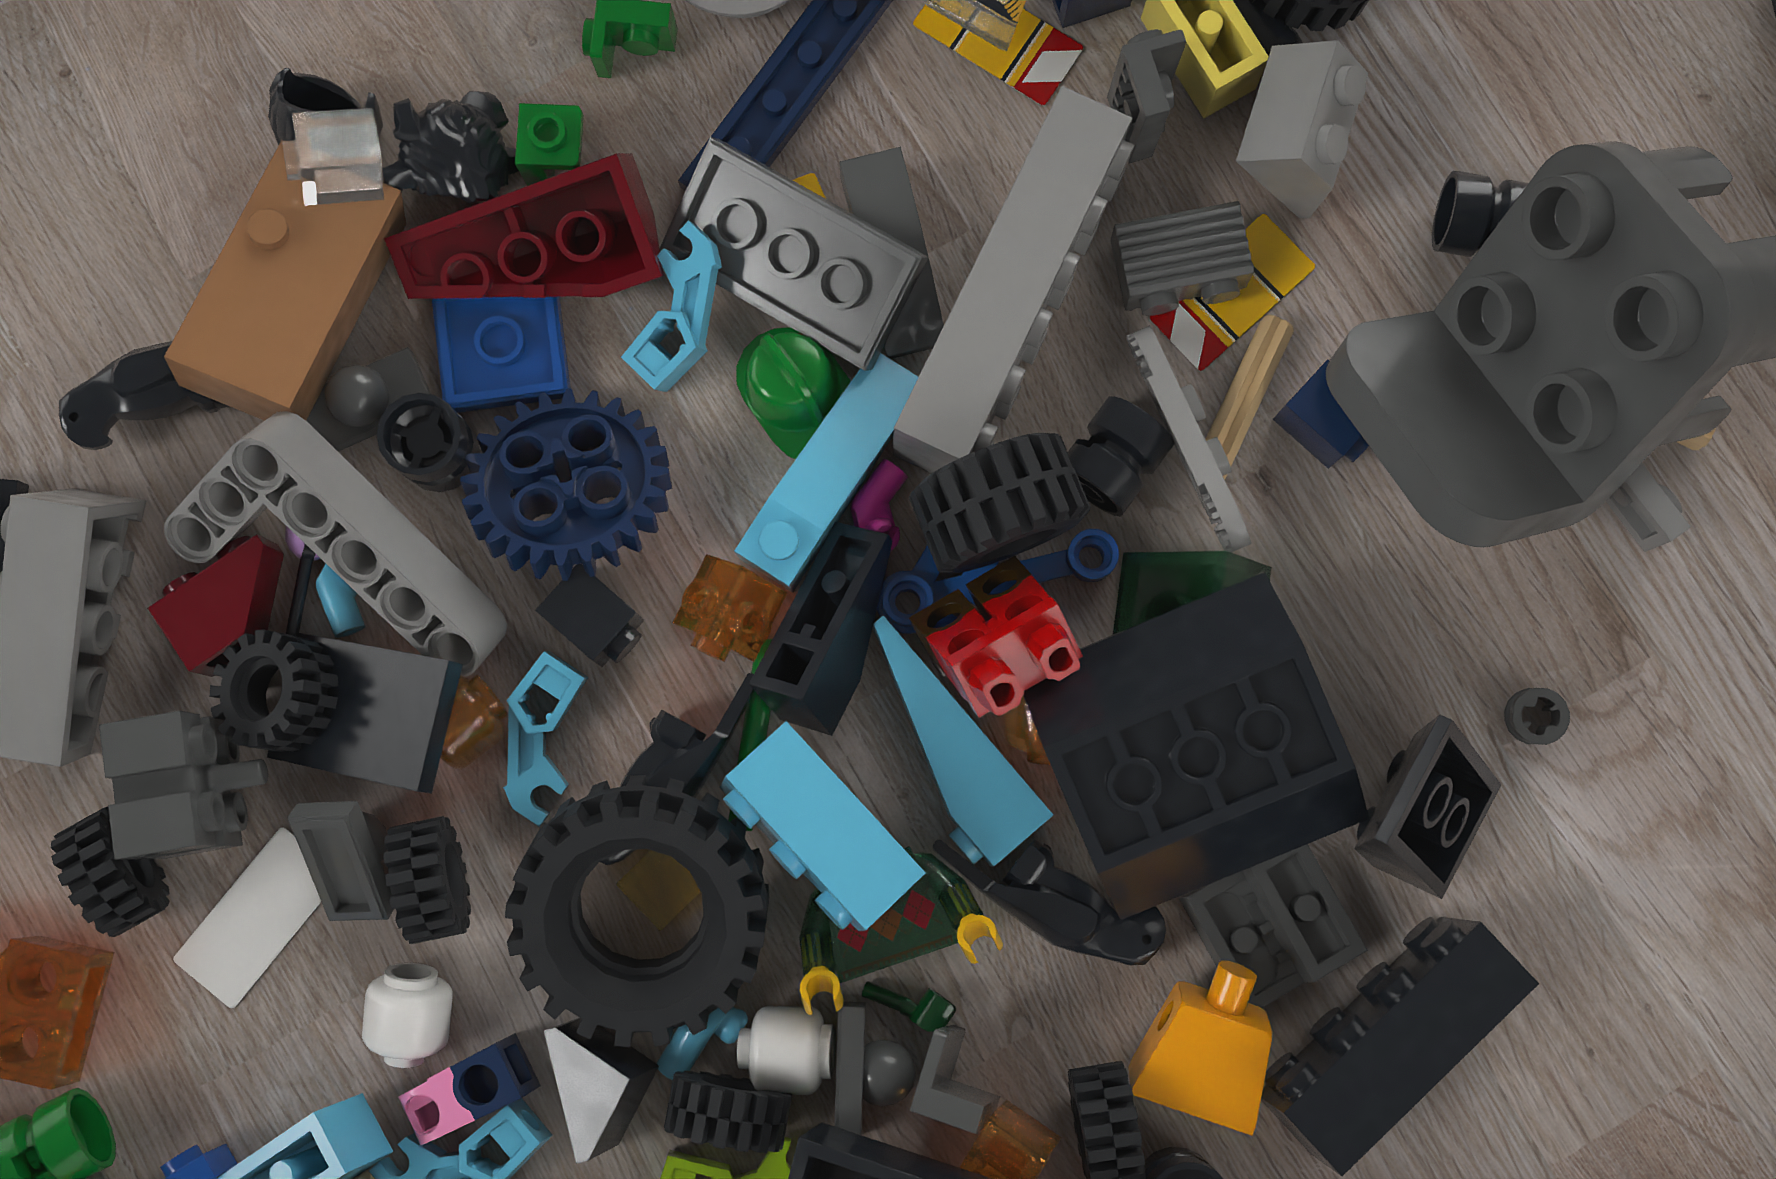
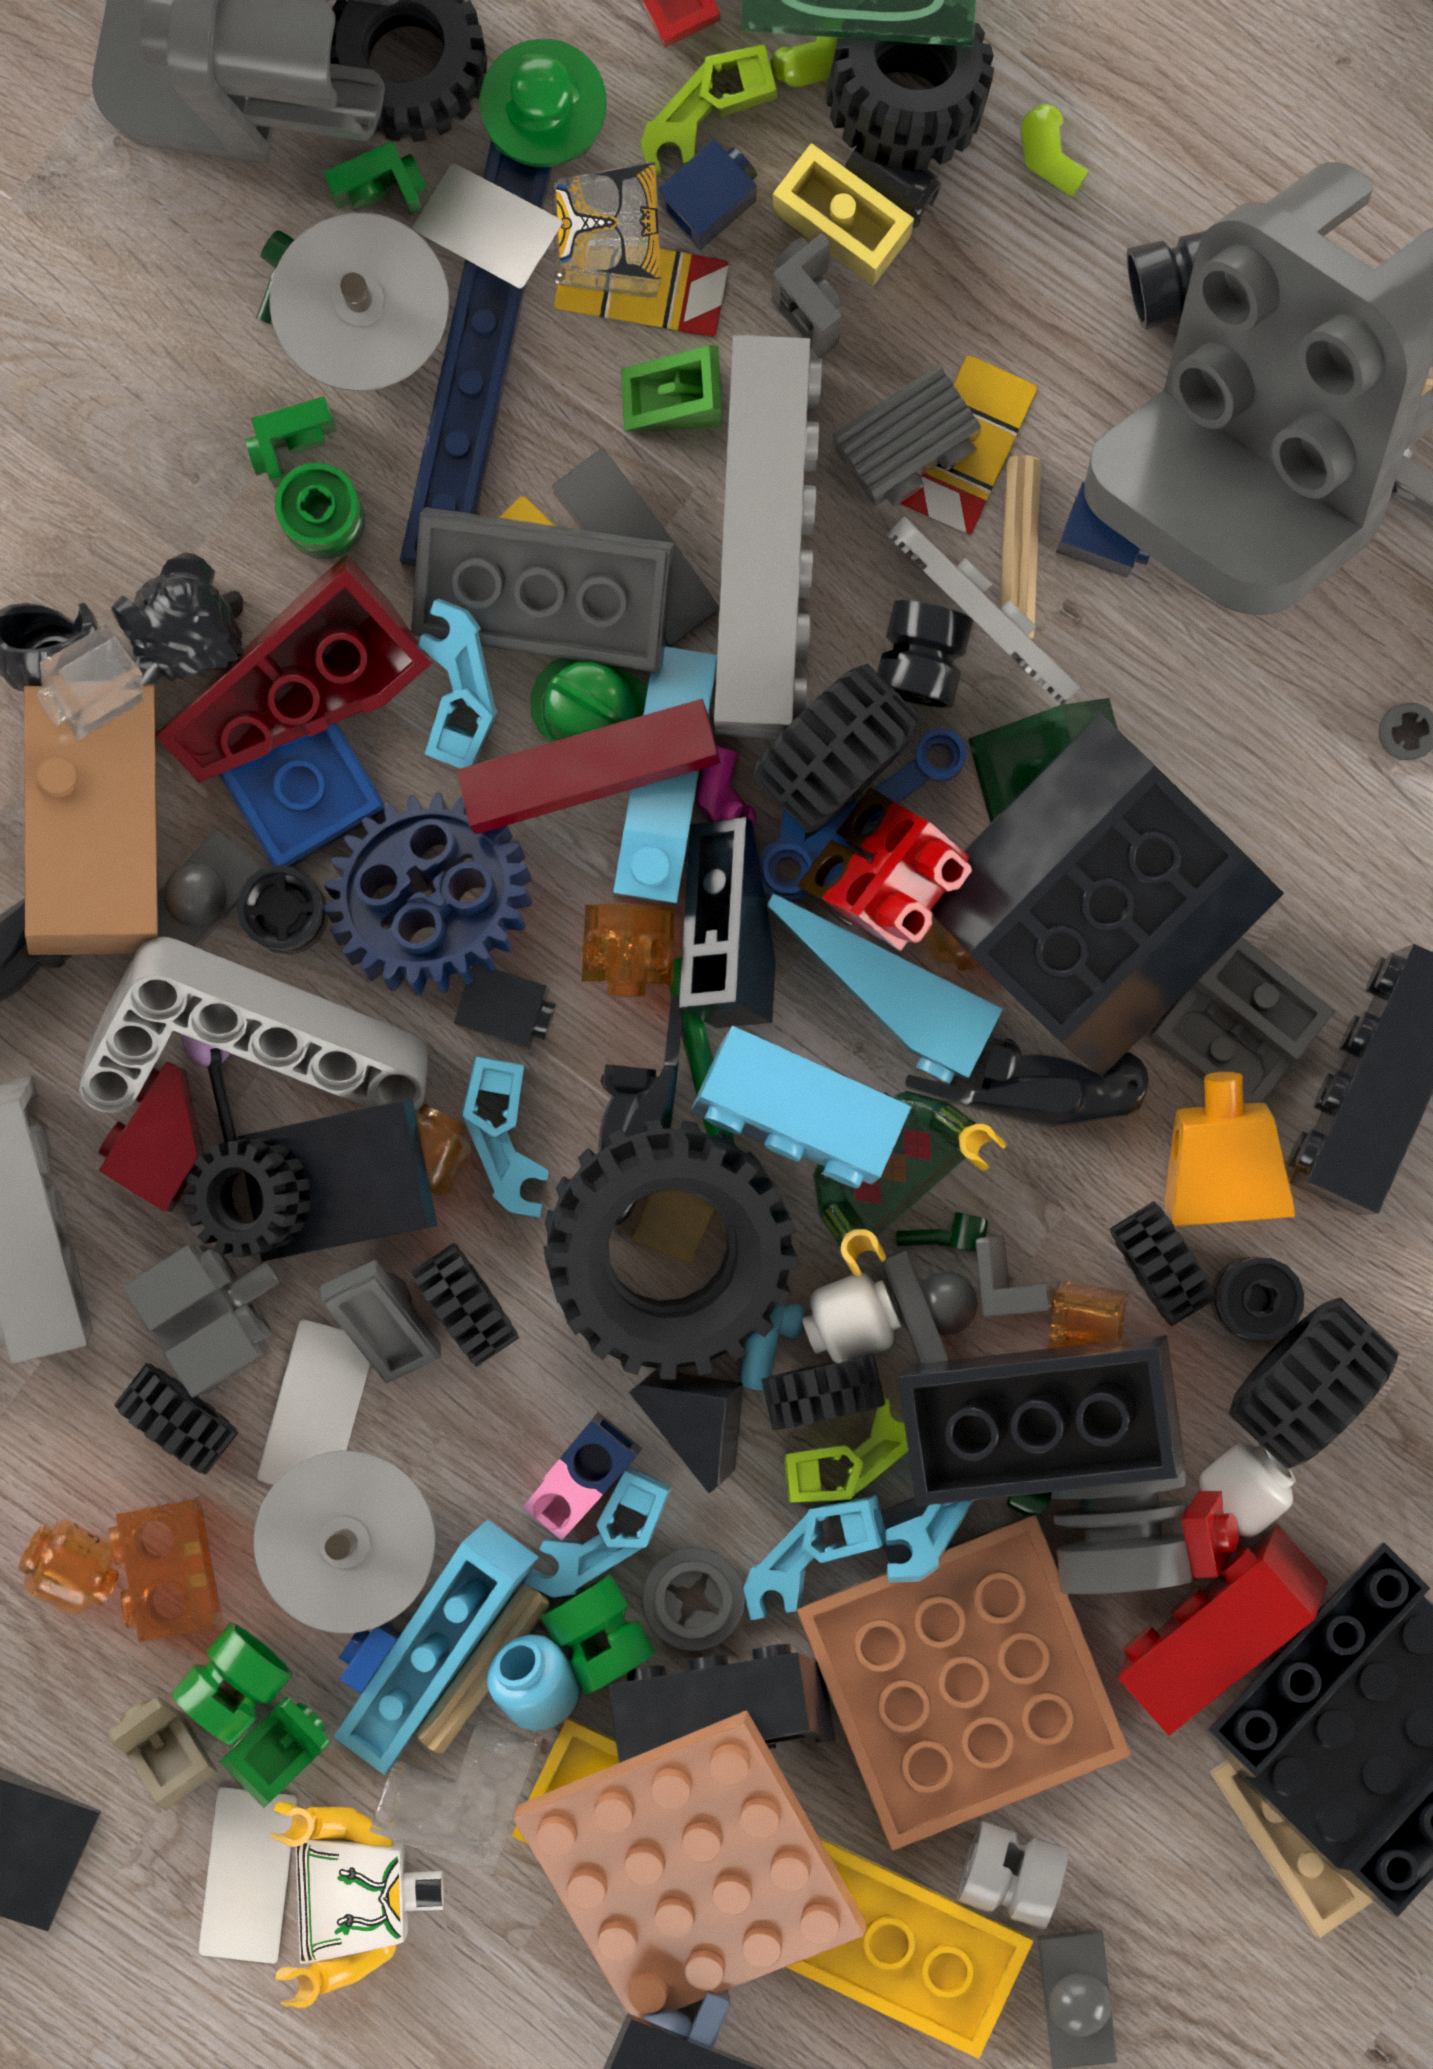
camera: 20 degrees left, 5 degrees up
(208, 1060) = (344, 1541): none -> light grey piece
(339, 603) = (256, 1087): medium azure arm -> none
(407, 1014) = (497, 1432): white head -> none
(548, 140) = (268, 577): green bracket -> none
(623, 103) = (319, 510): none -> green wheel
(762, 427) = (588, 766): none -> dark red tile
(988, 133) = (673, 392): none -> bright green slope
(1302, 122) = (967, 266): light grey slope -> none
(1406, 61) = (1044, 152): none -> lime arm
(1429, 808) = (1339, 863): black slope -> none

